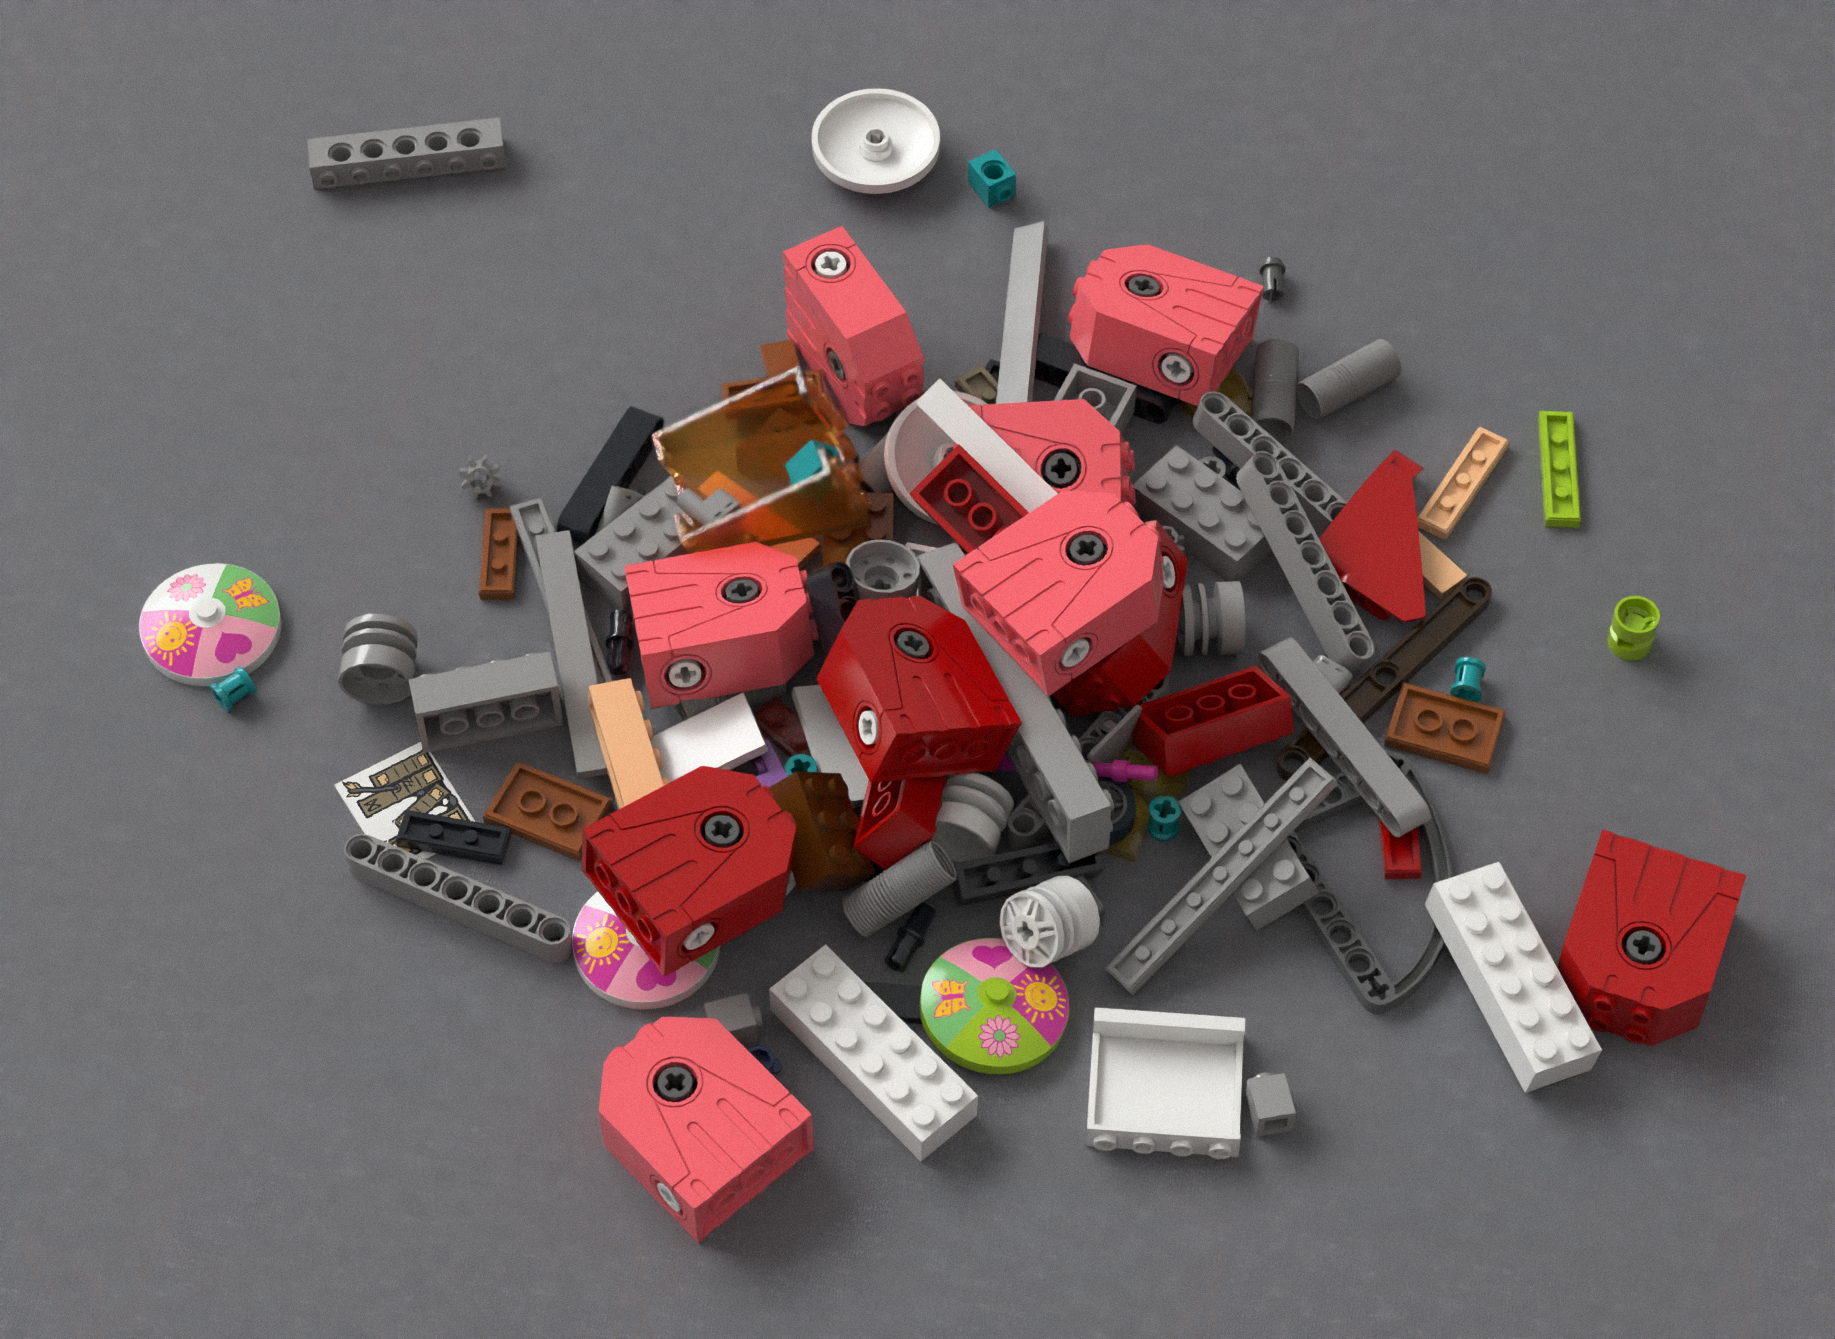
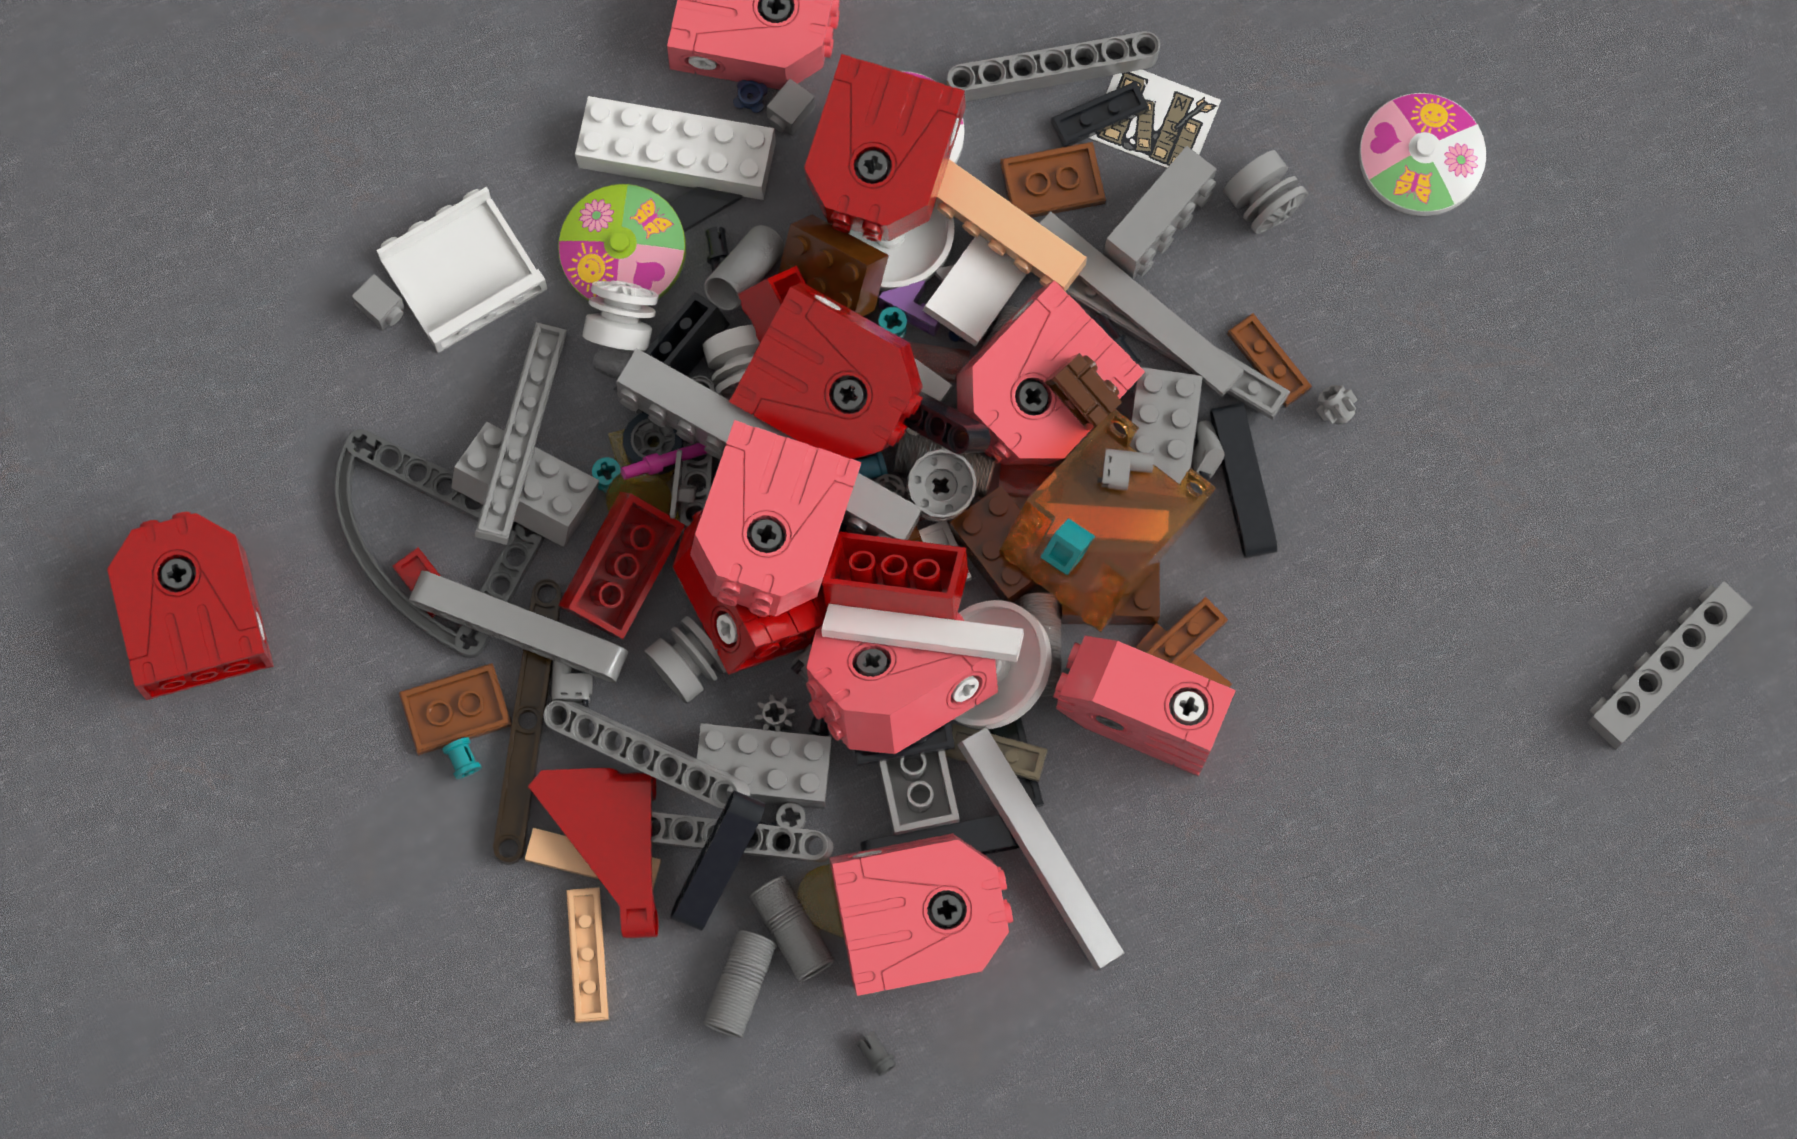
camera: 140 degrees right, 20 degrees up
(233, 688) = (1354, 111): teal bush -> none
(695, 562) = (1084, 390): none -> reddish brown brick
(875, 141) = (1302, 951): white dish -> none
(992, 178) = (1193, 983): teal brick -> none
(1305, 441) = (717, 860): none -> black beam
(1512, 977) = (268, 510): white brick -> none
(1559, 469) = (519, 1026): lime tile -> none
(1633, 628) = (361, 891): lime wheel -> none

